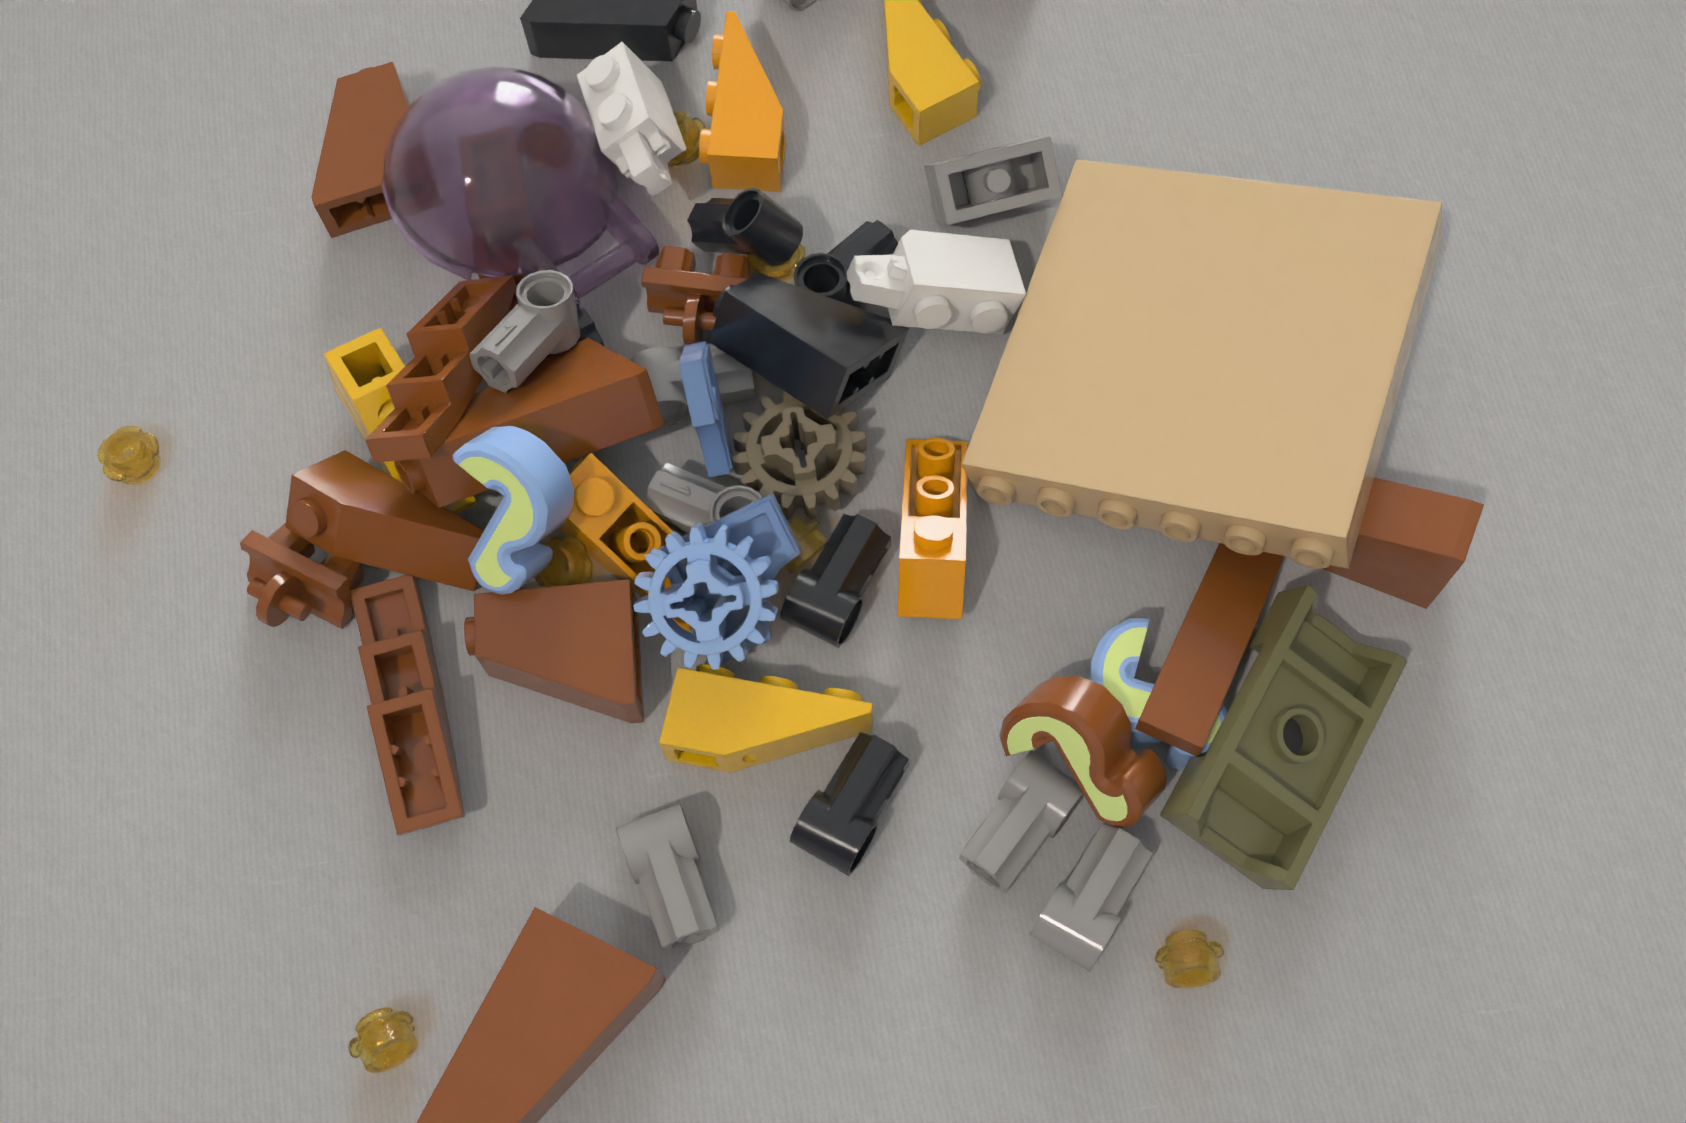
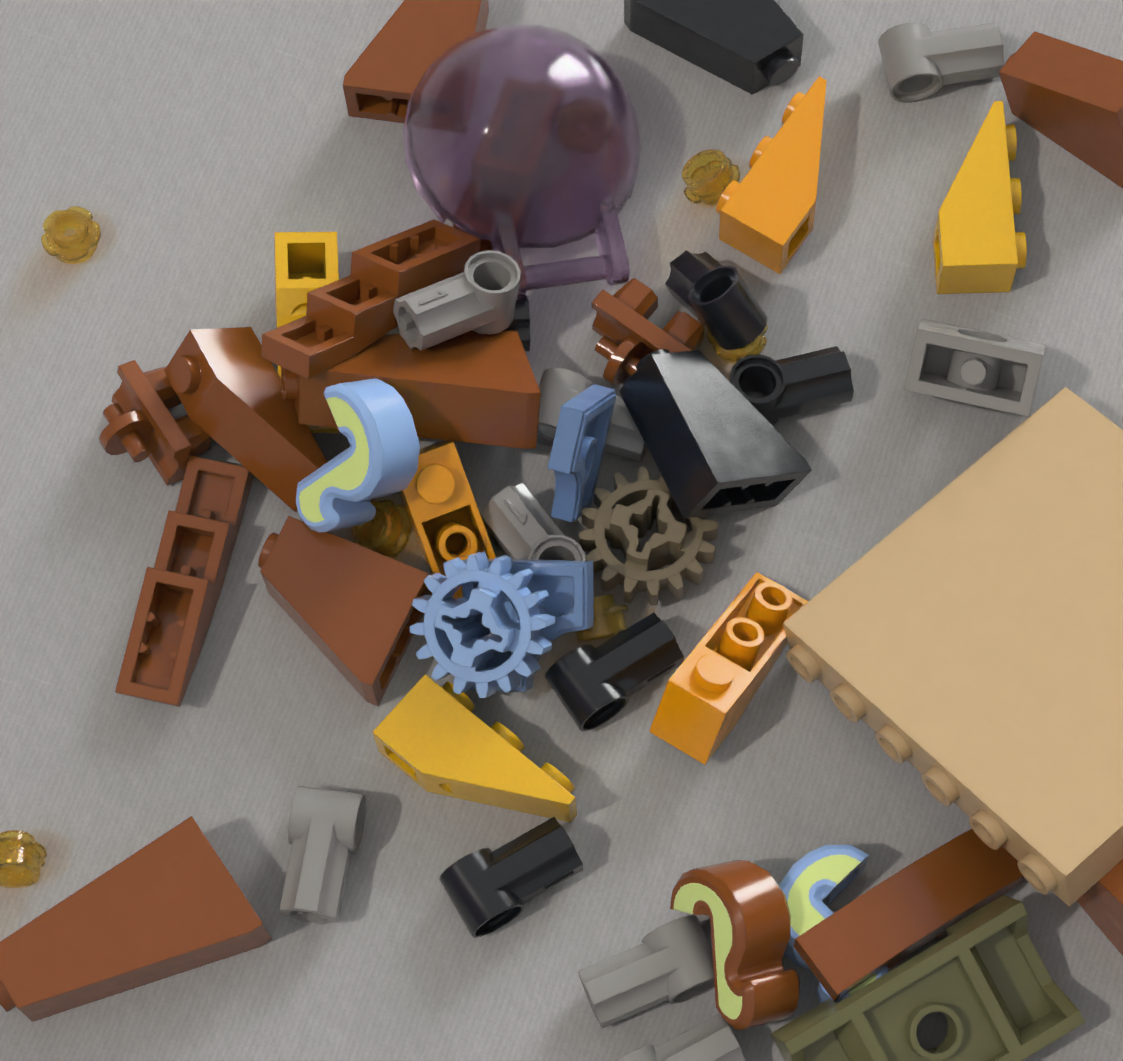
camera: 30 degrees right, 0 degrees up
(632, 117) = (671, 141): white hinge -> none
(942, 282) = (865, 442): white hinge -> none

